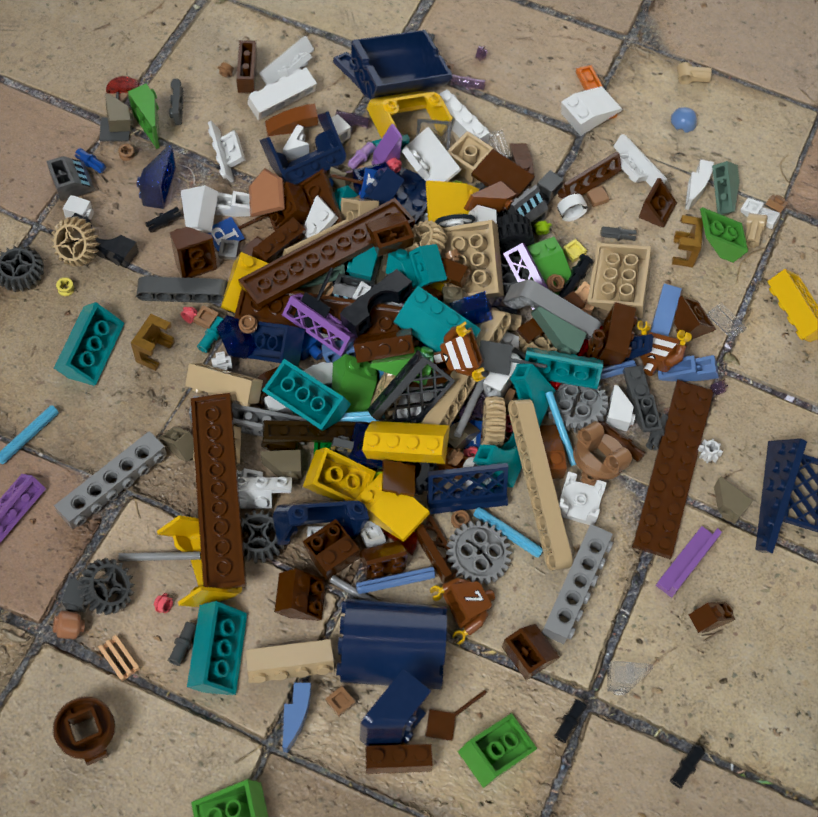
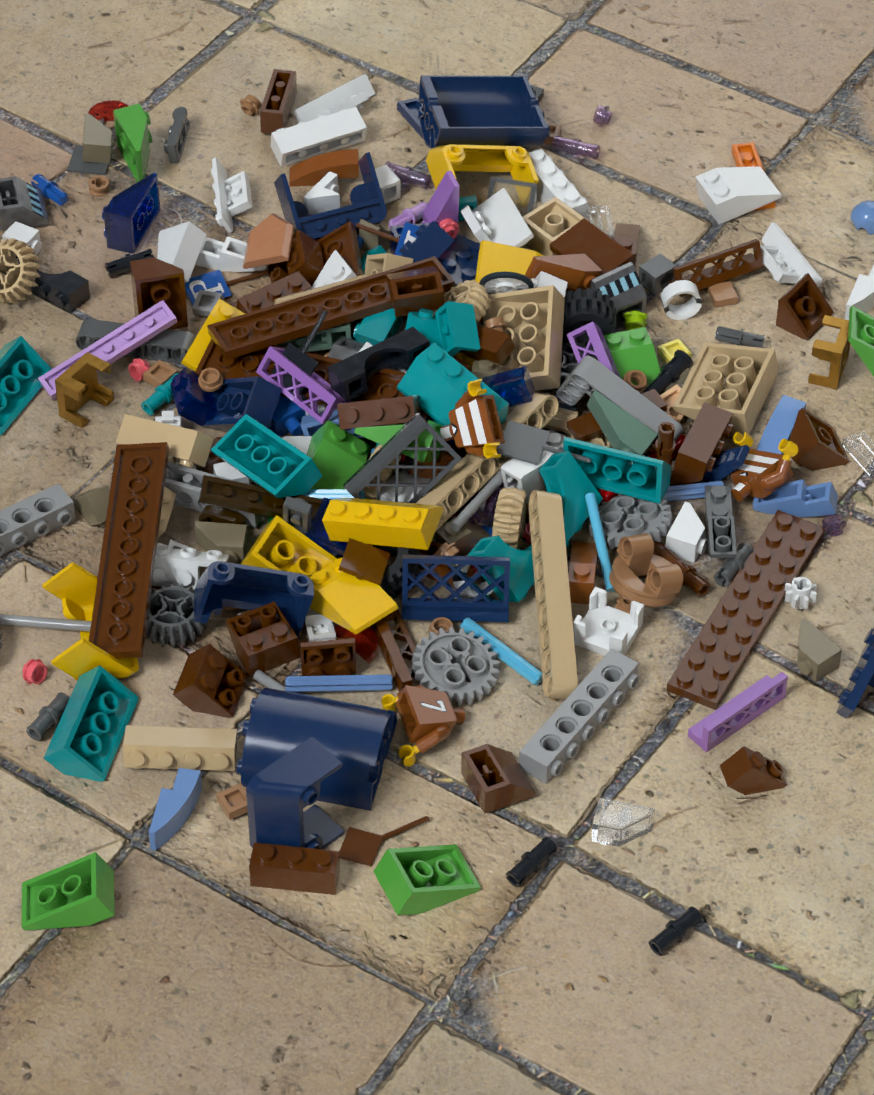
camera: 15 degrees right, 15 degrees down
(166, 300) = (117, 342): none -> lavender plate

